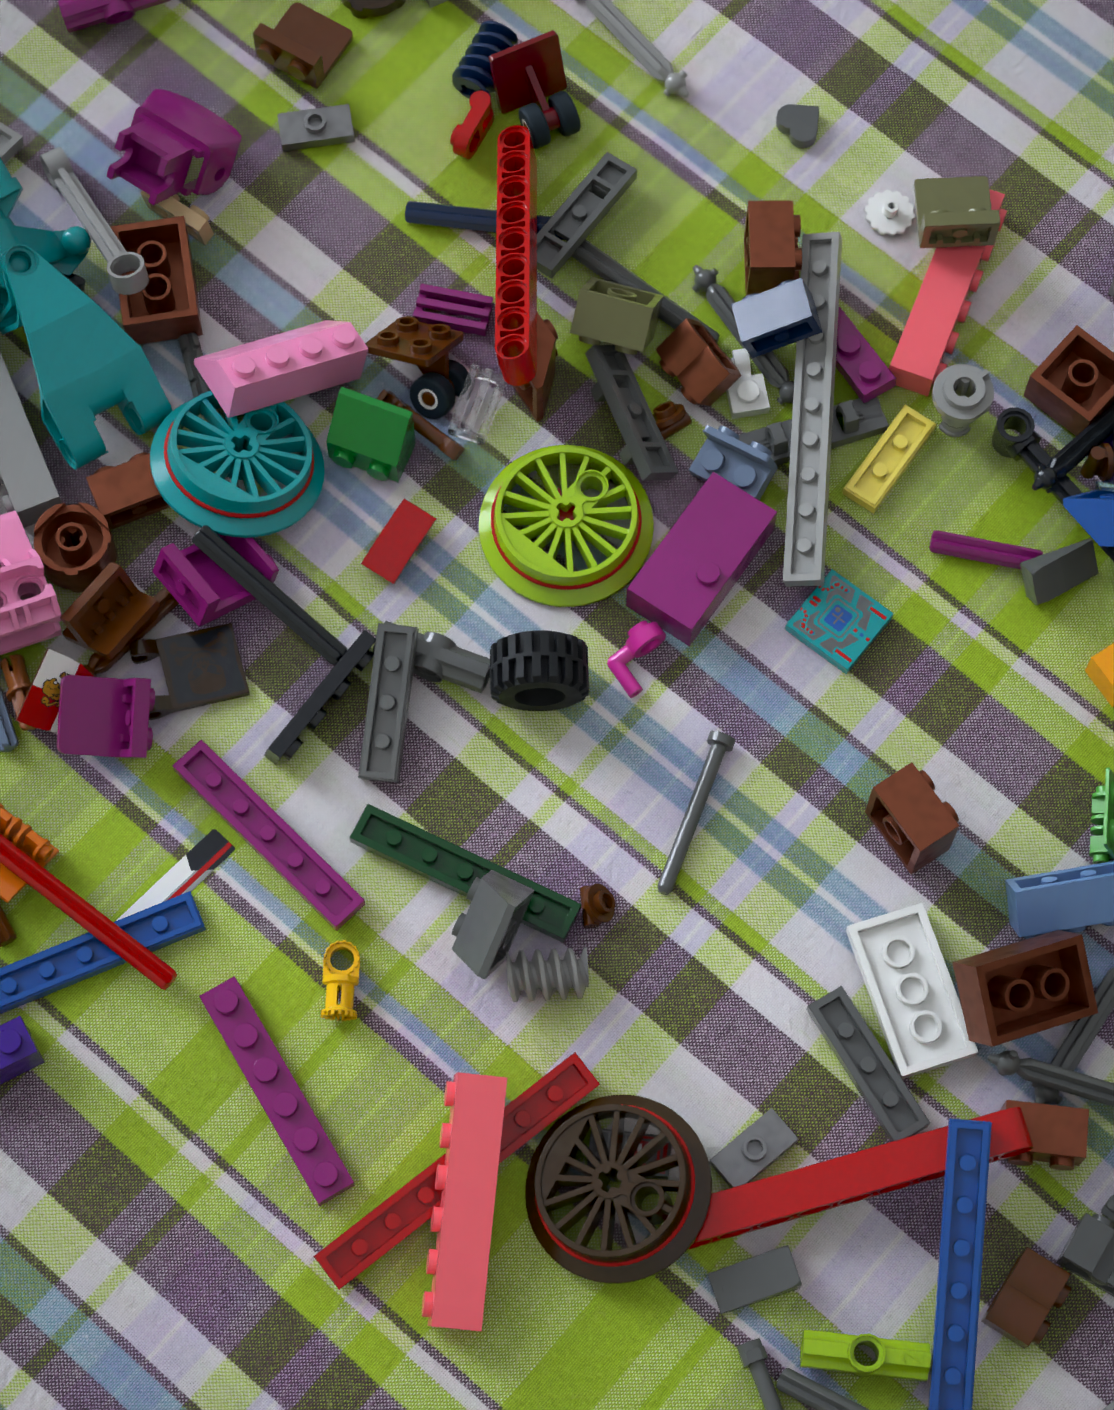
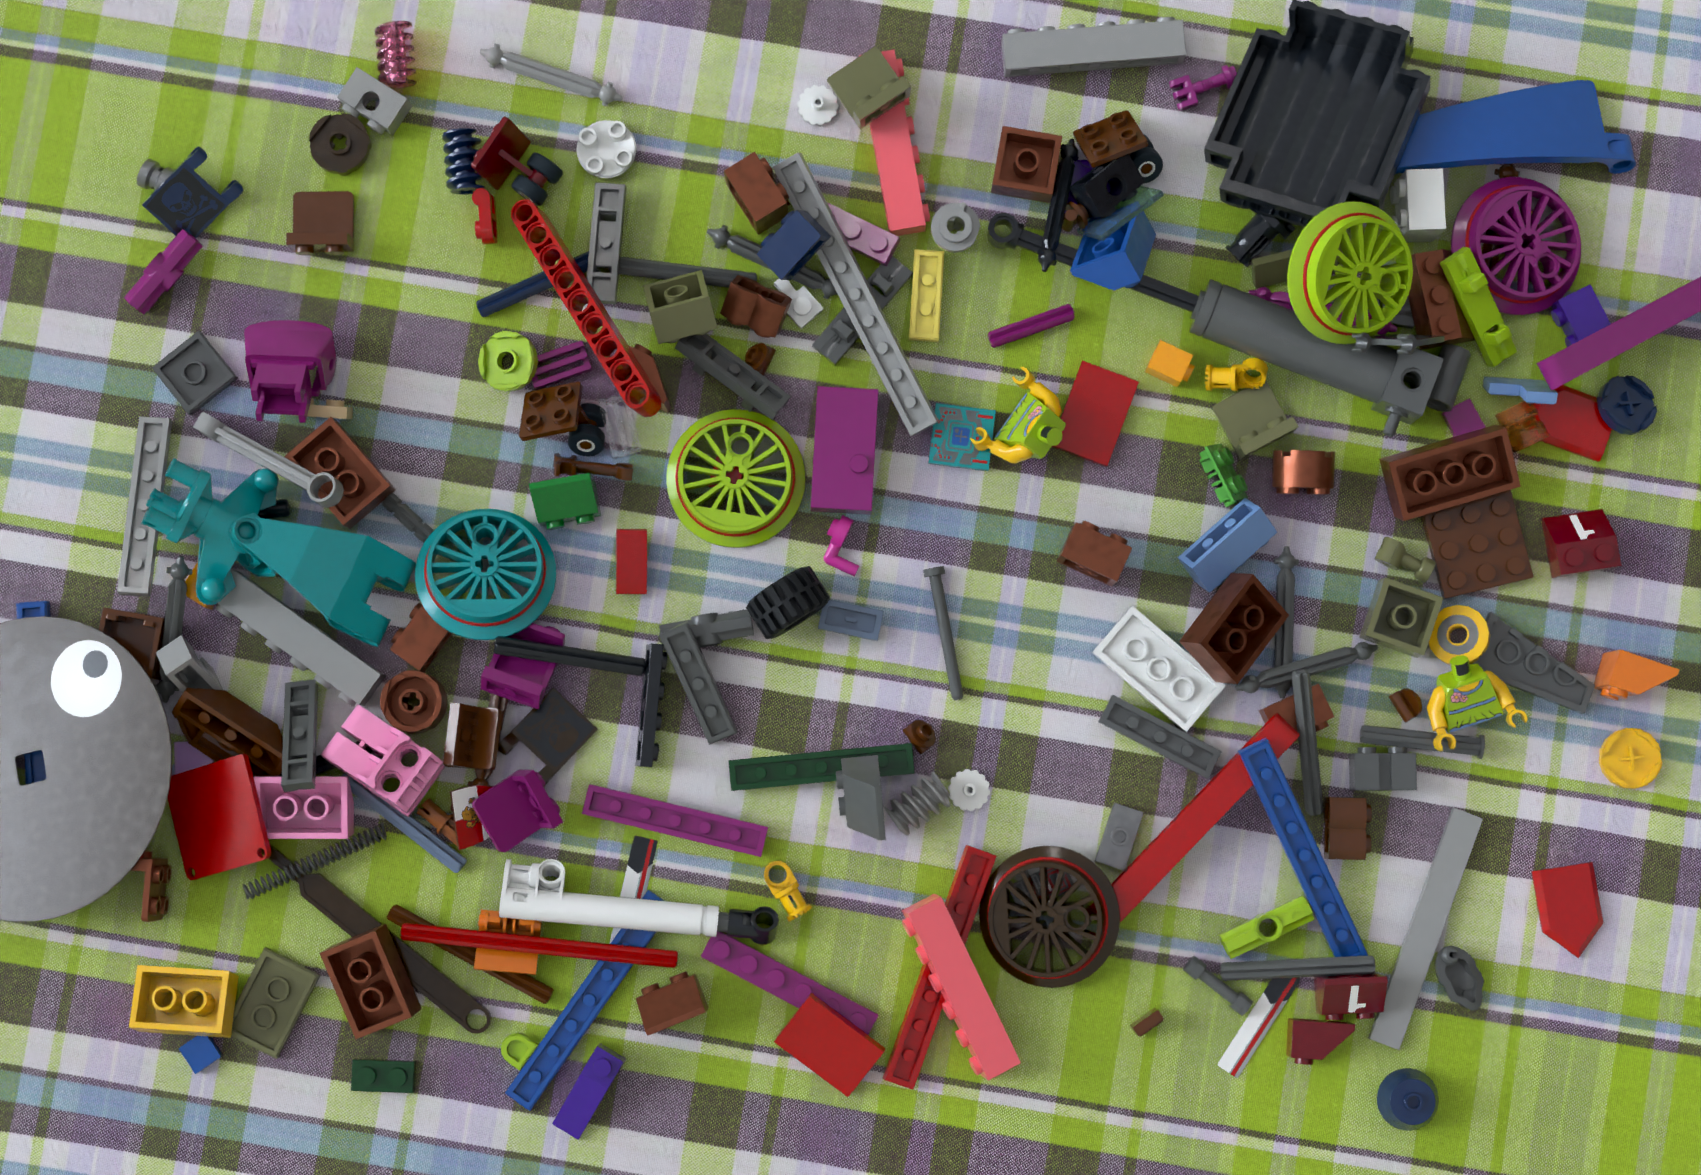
camera: 30 degrees left, 15 degrees up
(74, 823) = (532, 897): none -> white piece
(78, 113) = (194, 373): none -> dark grey tile
(132, 1025) = (671, 1003): none -> copper slope
(277, 1180) = (829, 1044): none -> red tile
(283, 366) = (471, 484): bright pink slope -> none
(316, 127) = (372, 282): flat silver plate -> none
(409, 290) = (524, 361): none -> lime tile
(597, 737) = (851, 620): none -> sand blue plate
(614, 998) = (969, 790): none -> white piece
(640, 132) = (606, 149): none -> white dish
(657, 1380) = (1147, 1022): none -> reddish brown tile
(741, 464) = (825, 369): sand blue bracket -> none
(755, 1280) = (1169, 920): dark grey slope -> none
(799, 123) = (714, 72): dark grey tile -> none
(920, 647) = (1030, 427): none -> torso
(1001, 680) = (1095, 413): none -> red tile
(1037, 1167) = (1307, 742): none -> dark grey axle
(1058, 571) = (1088, 314): dark grey slope -> none

